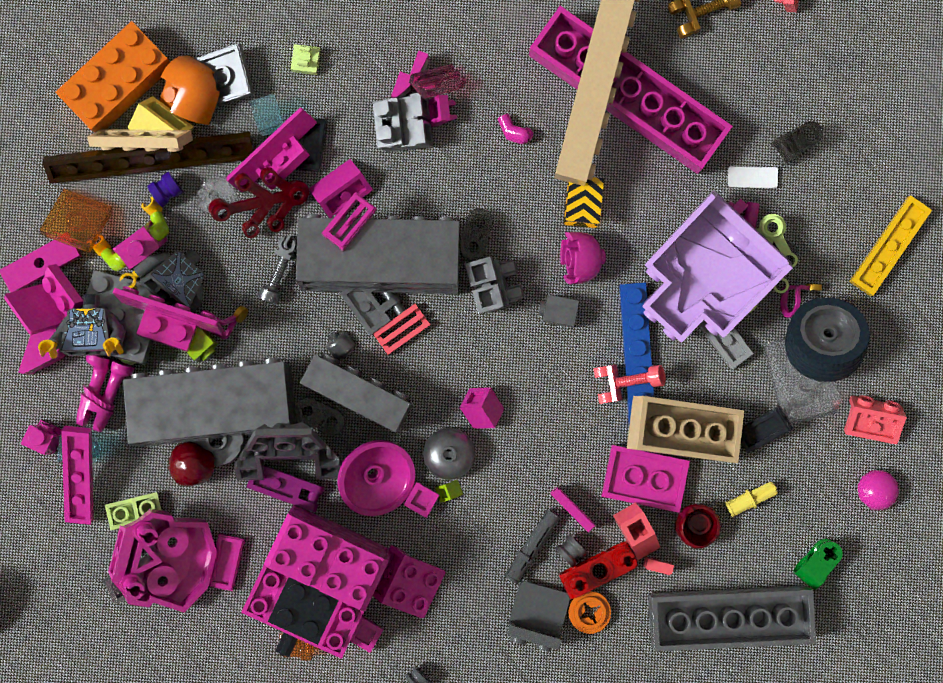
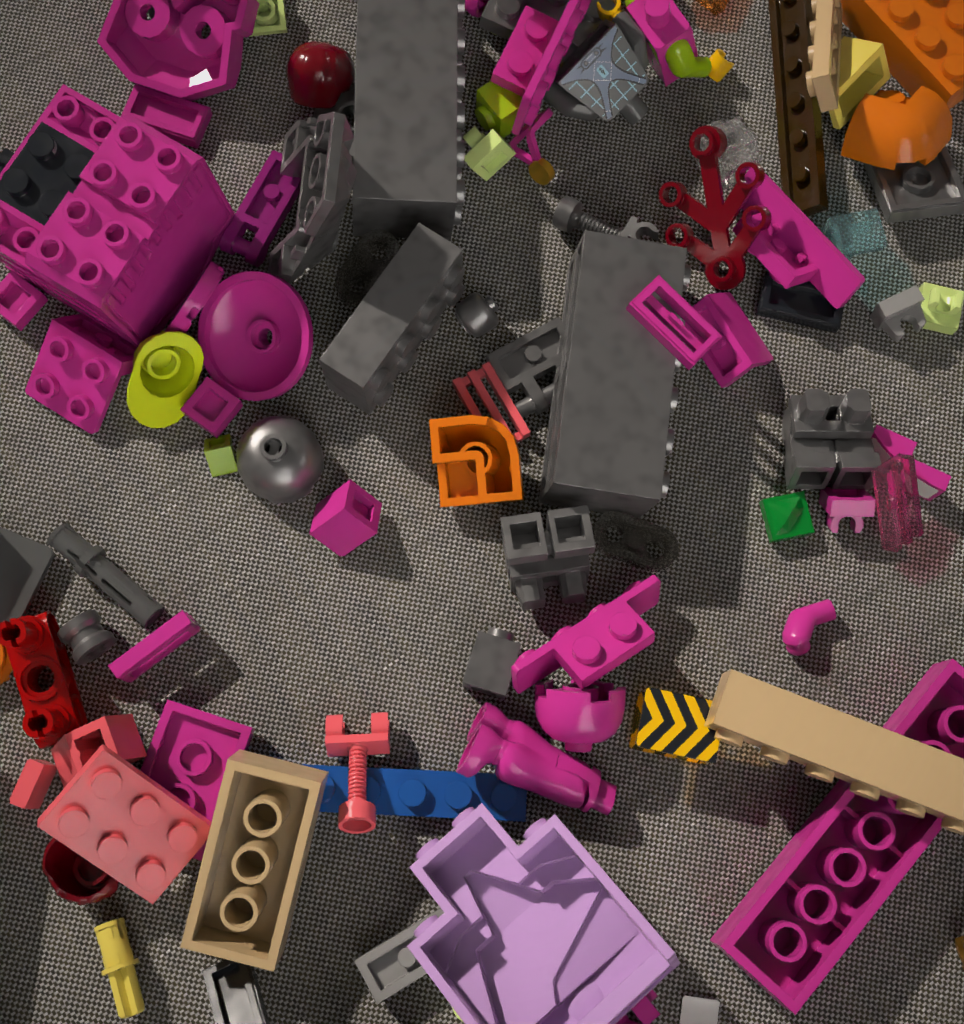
camera: 85 degrees right, 10 degrees down
(165, 189) = (745, 83): dark purple wheel -> none
(233, 349) = (487, 153): none -> yellowish green tile
(311, 83) = (898, 308): none -> light grey tile
(357, 518) = (196, 298): none -> dark pink tile
(407, 530) = (163, 378): none -> neon yellow piece
(442, 332) = (475, 461): none -> orange brick
(450, 145) = (786, 517): none -> green tile
(543, 250) = (596, 643): none -> dark pink bracket
(613, 282) = (532, 763): none -> dark pink piece
(676, 503) = (126, 824): none -> coral plate

